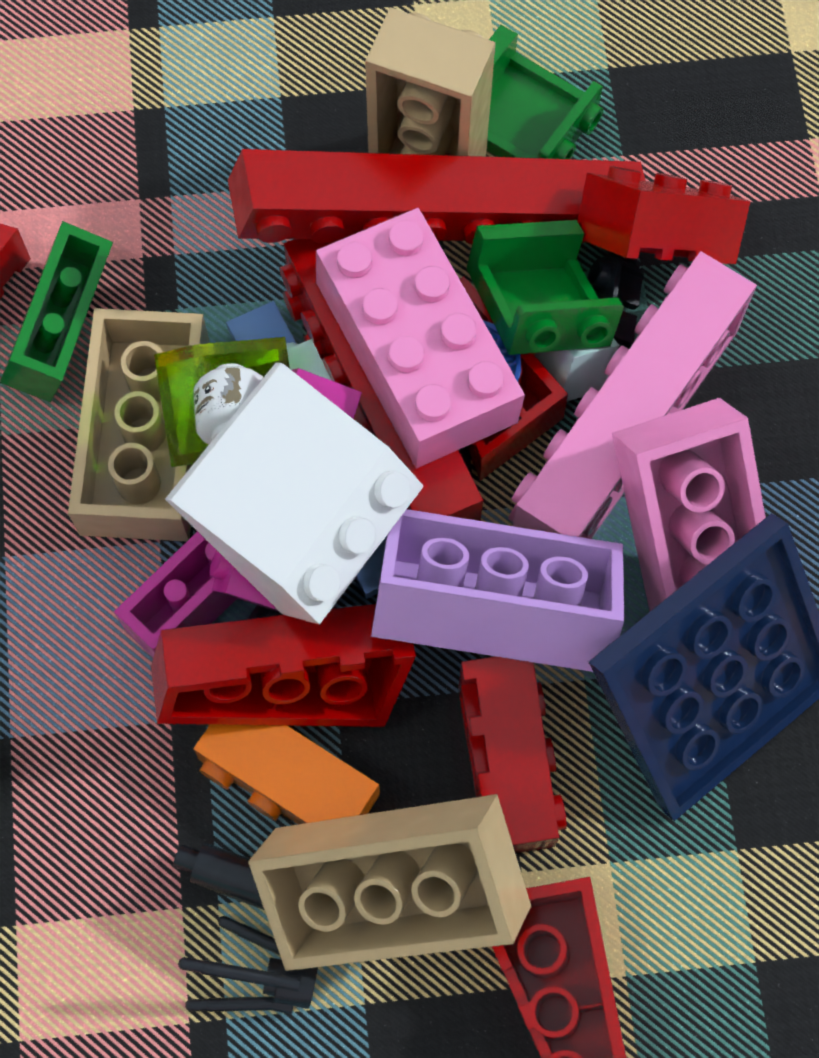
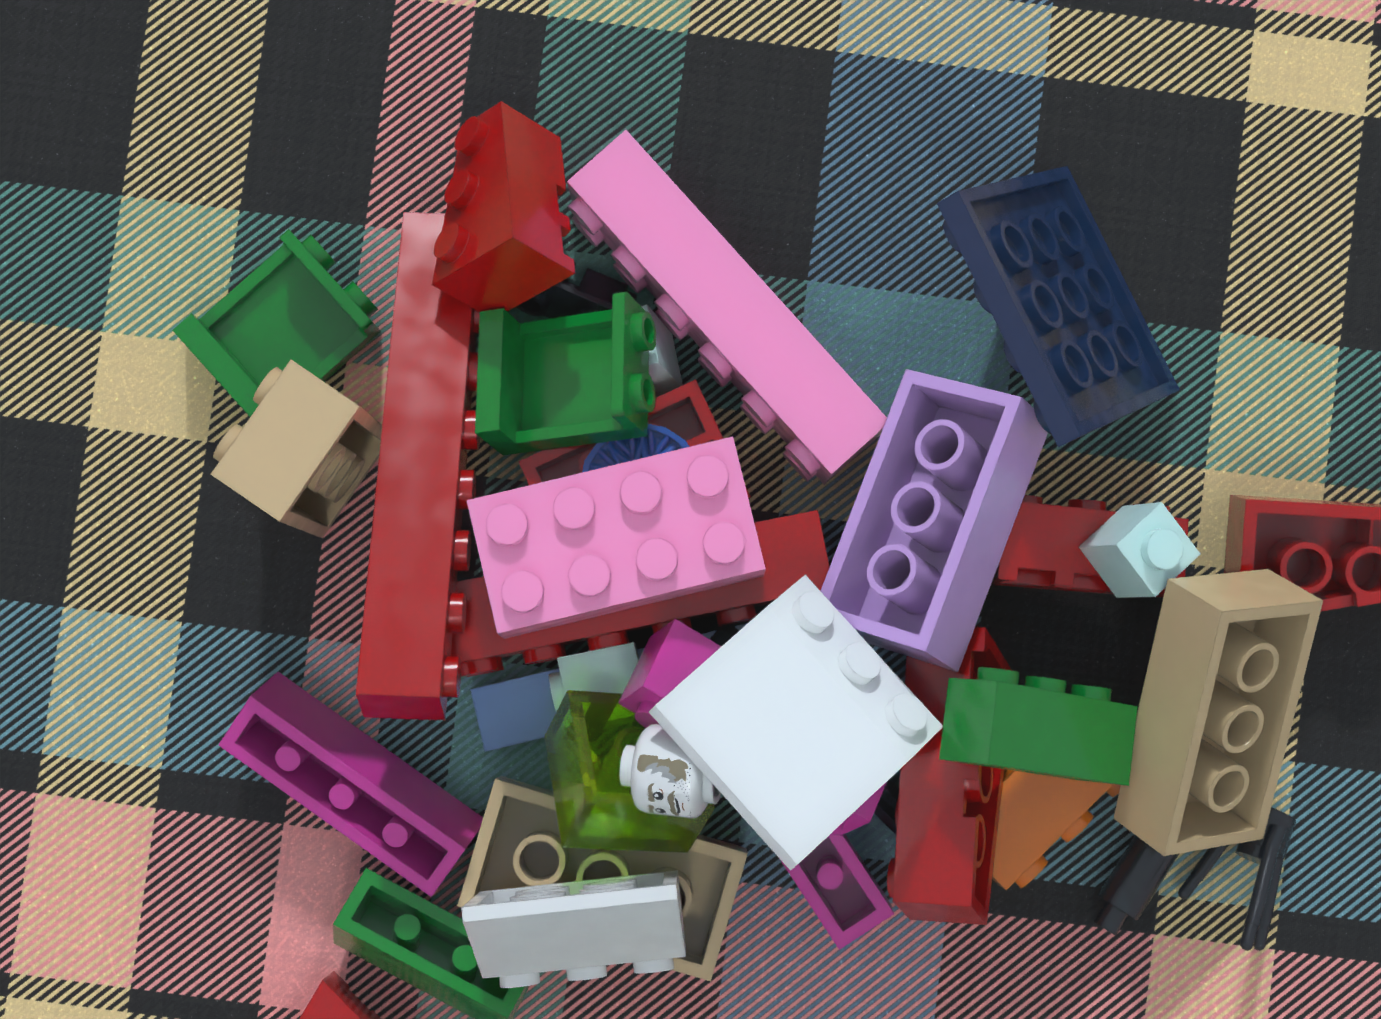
camera: 75 degrees left, 15 degrees up
(89, 378) = (577, 928): none -> white slope
(177, 222) = (352, 782): none -> dark pink brick
(338, 718) = (1038, 727): none -> green brick
(519, 780) = (1139, 550): none -> light aqua brick
(688, 491) = (877, 281): bright pink brick -> none

